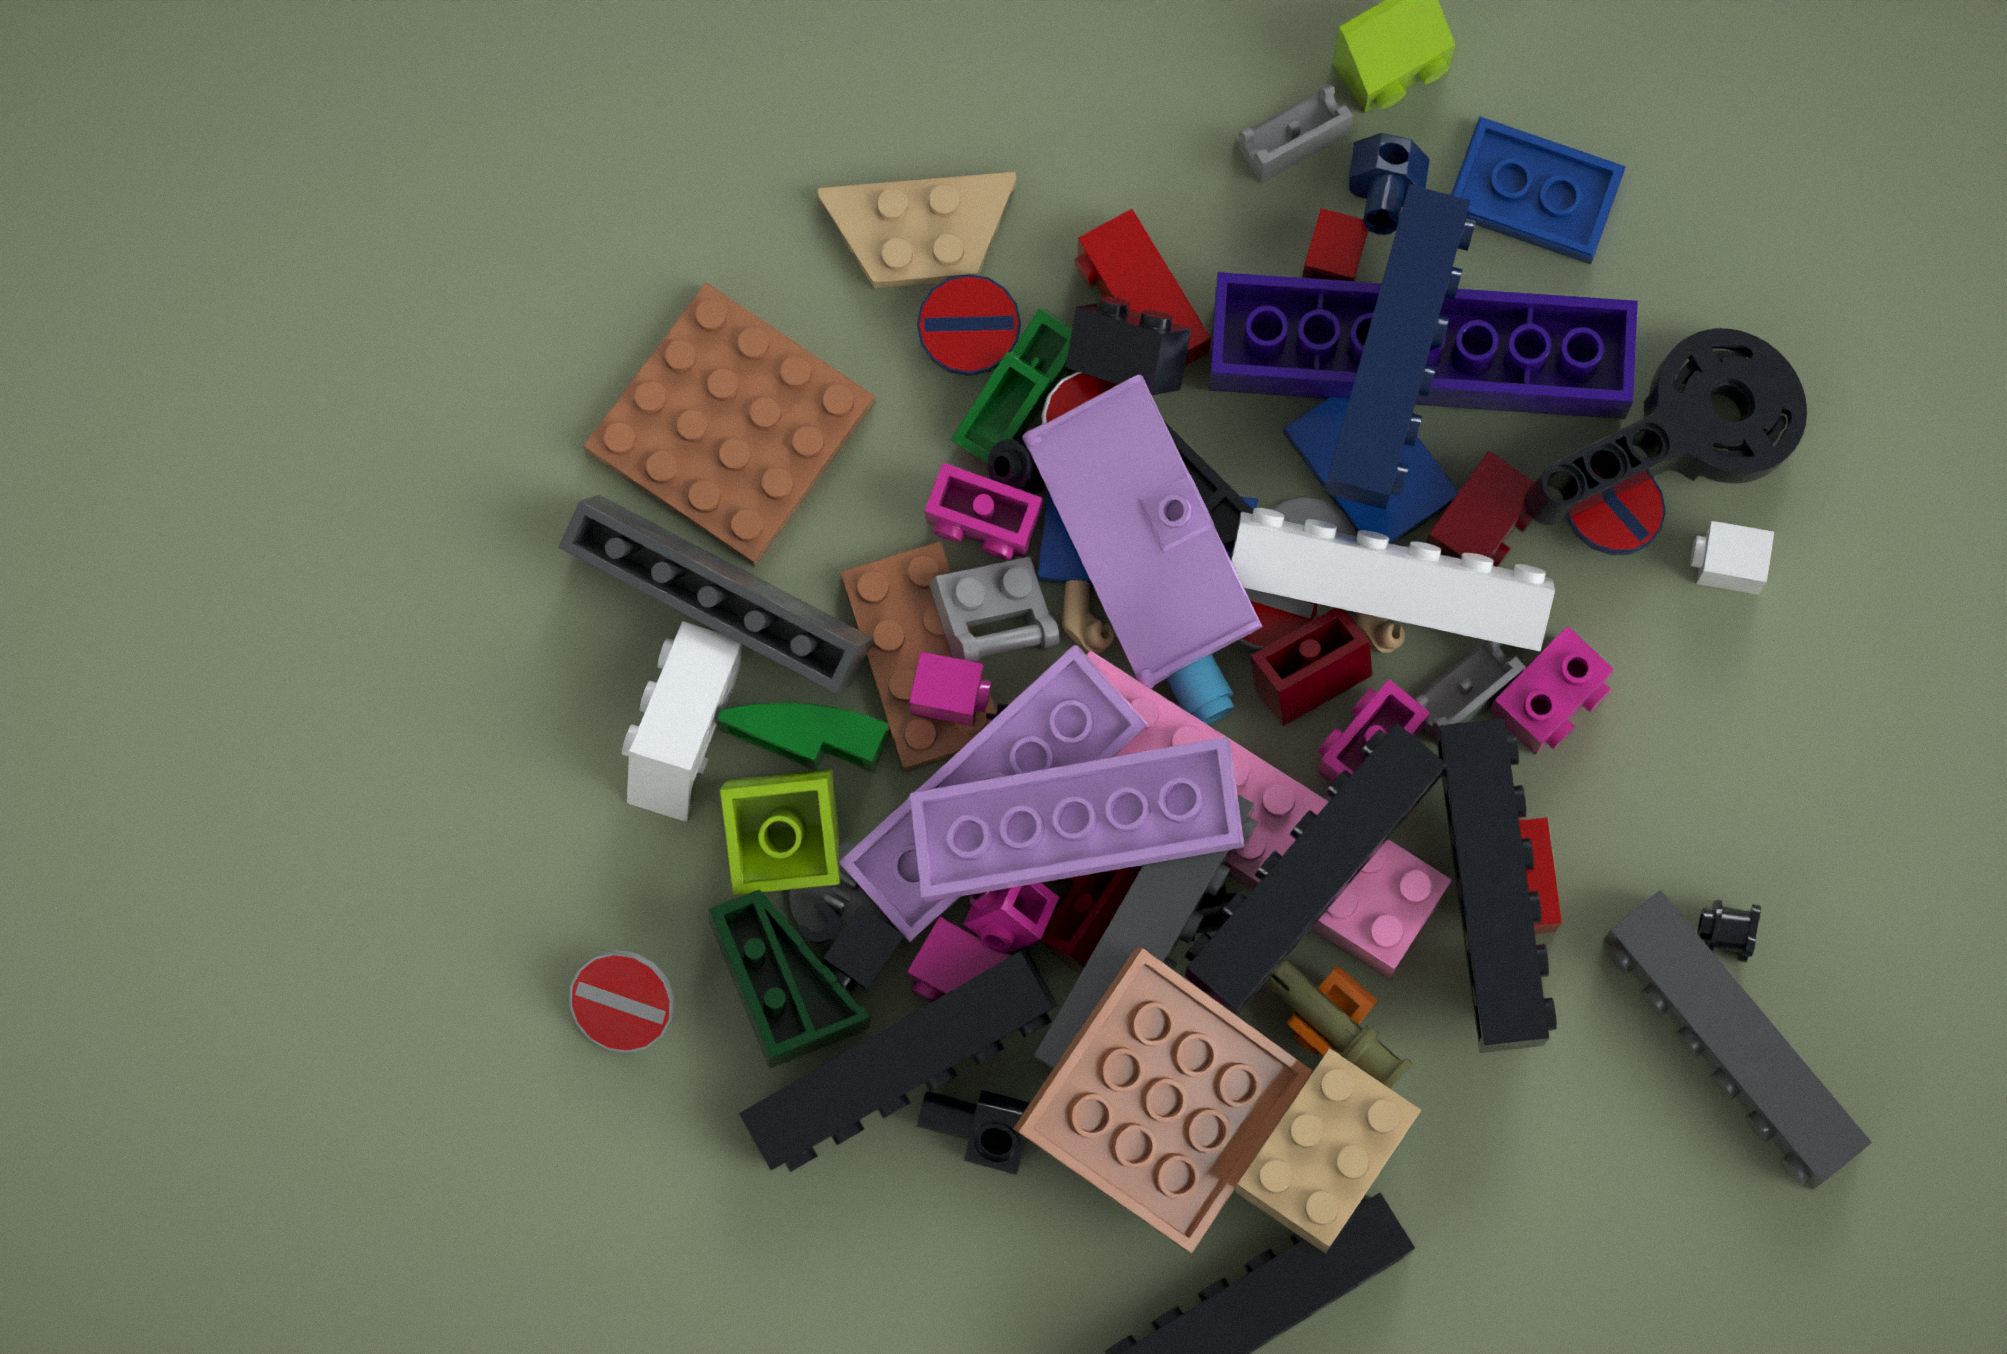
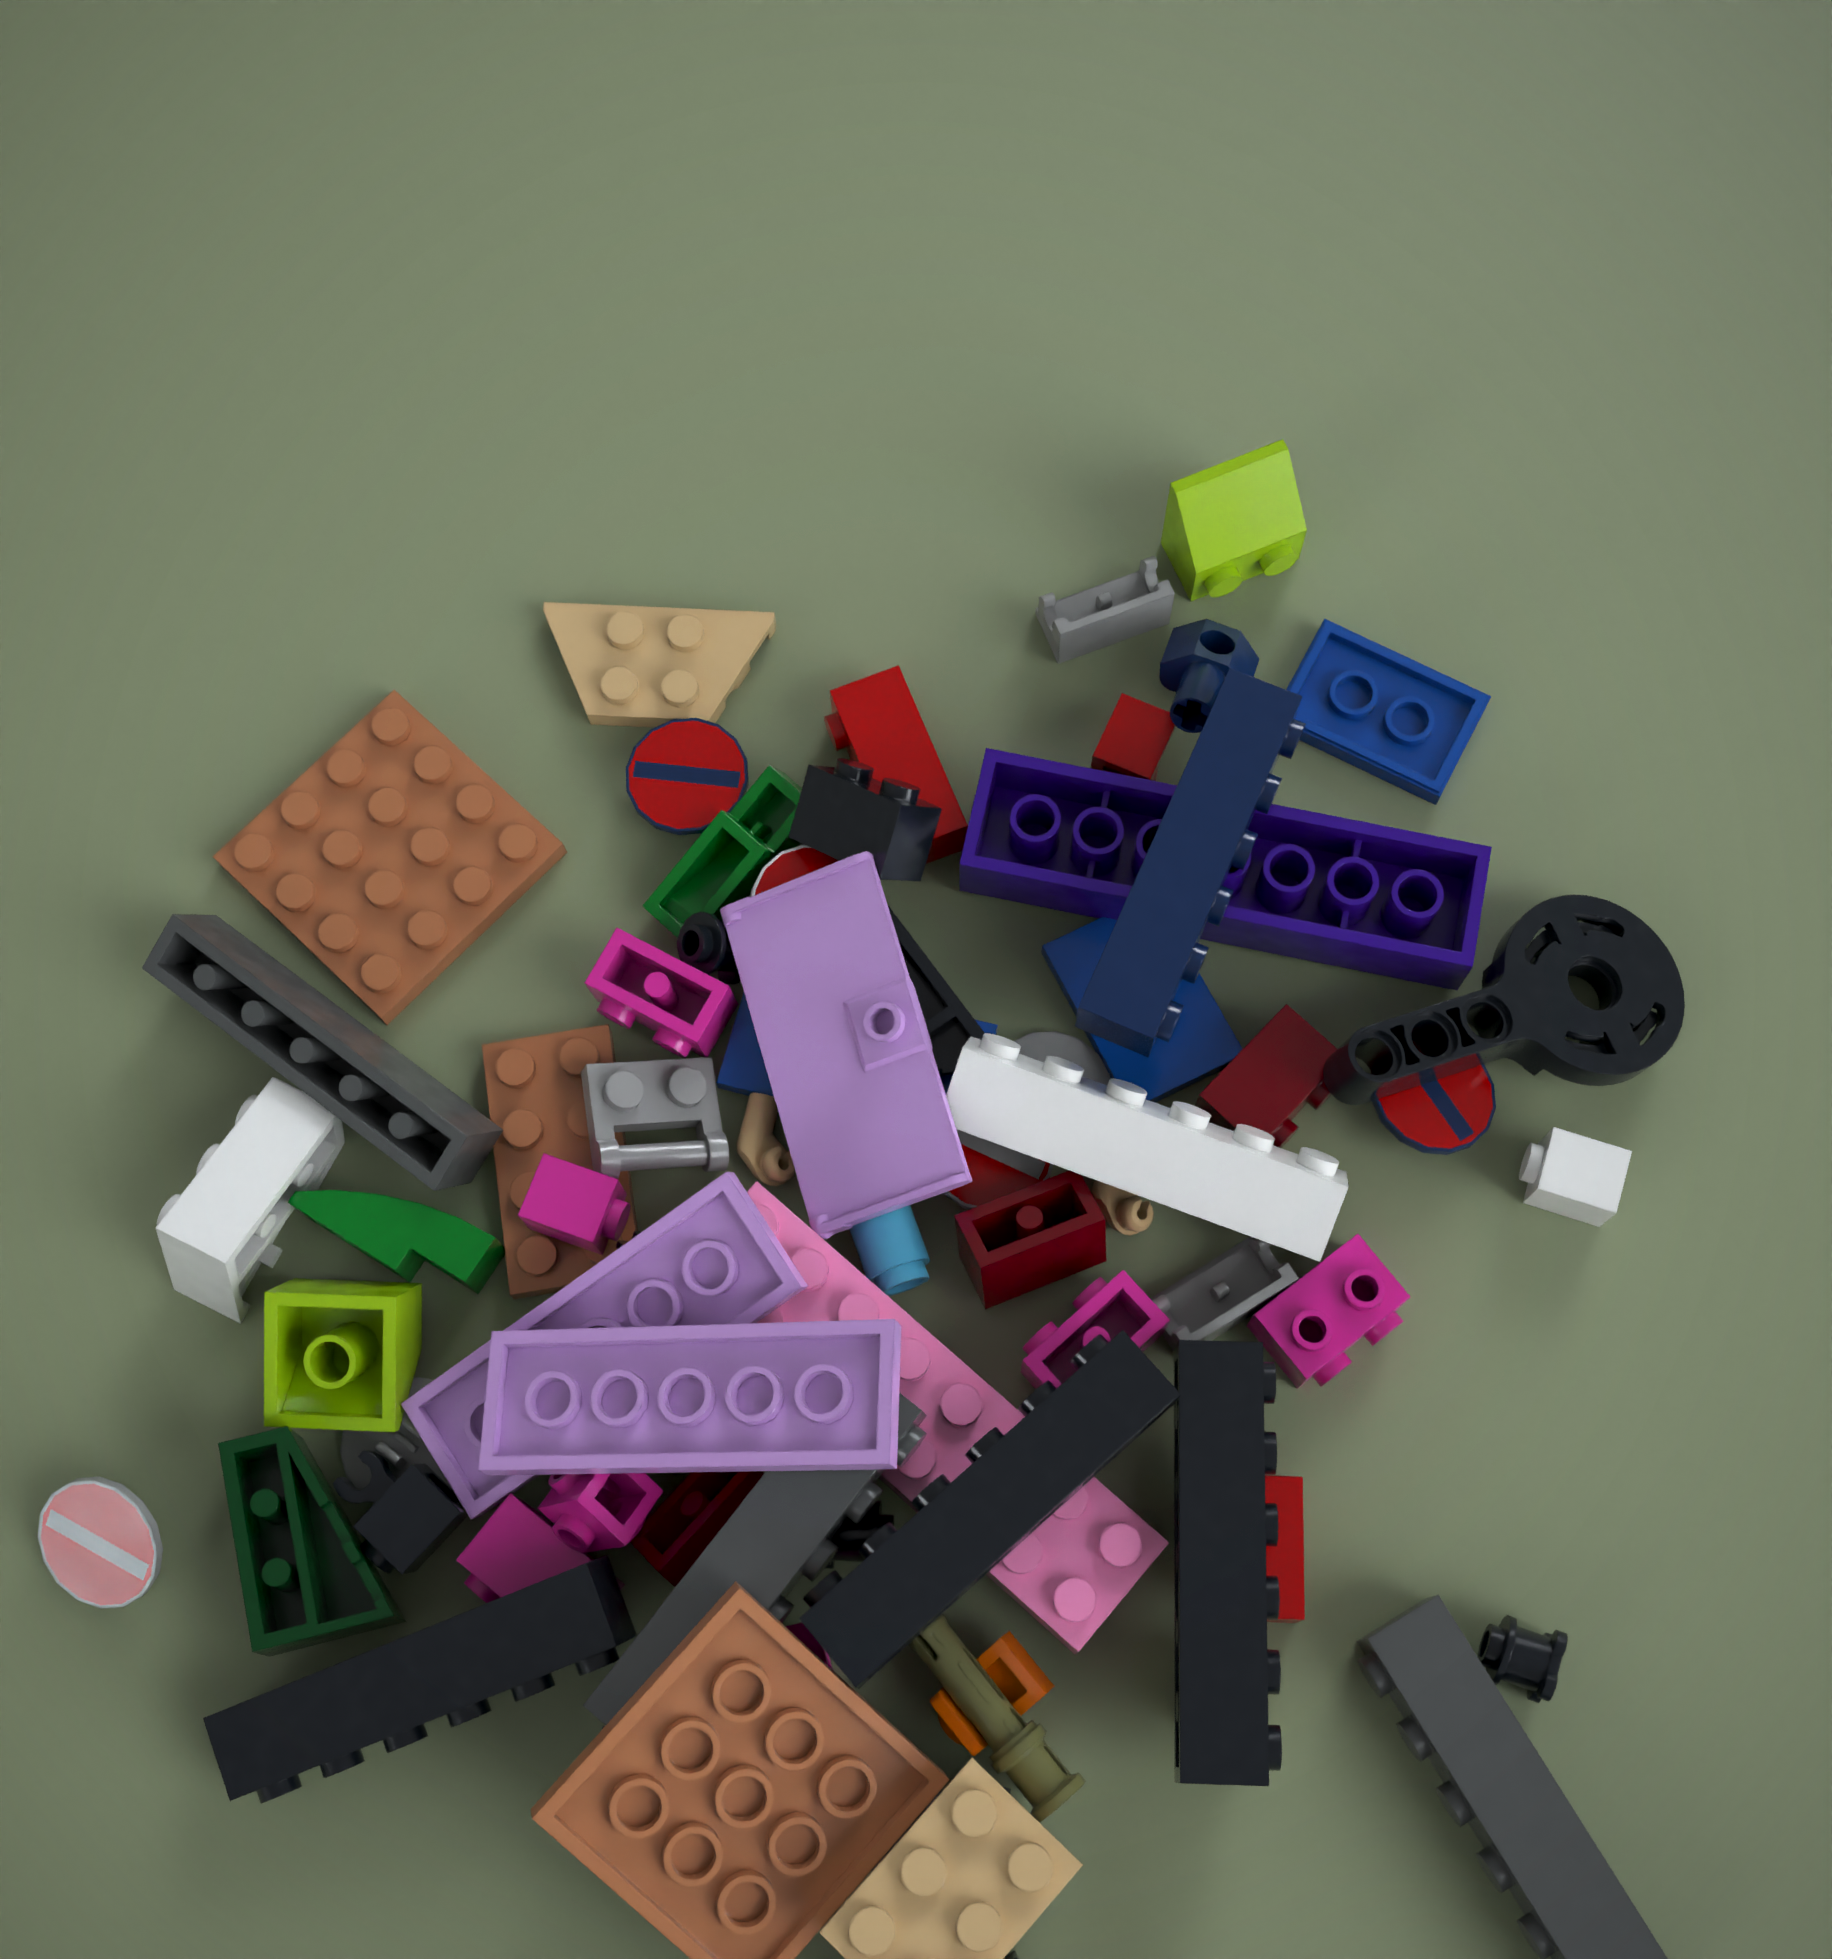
camera: 10 degrees right, 5 degrees down
(978, 1124) = (514, 1772): black piece -> none

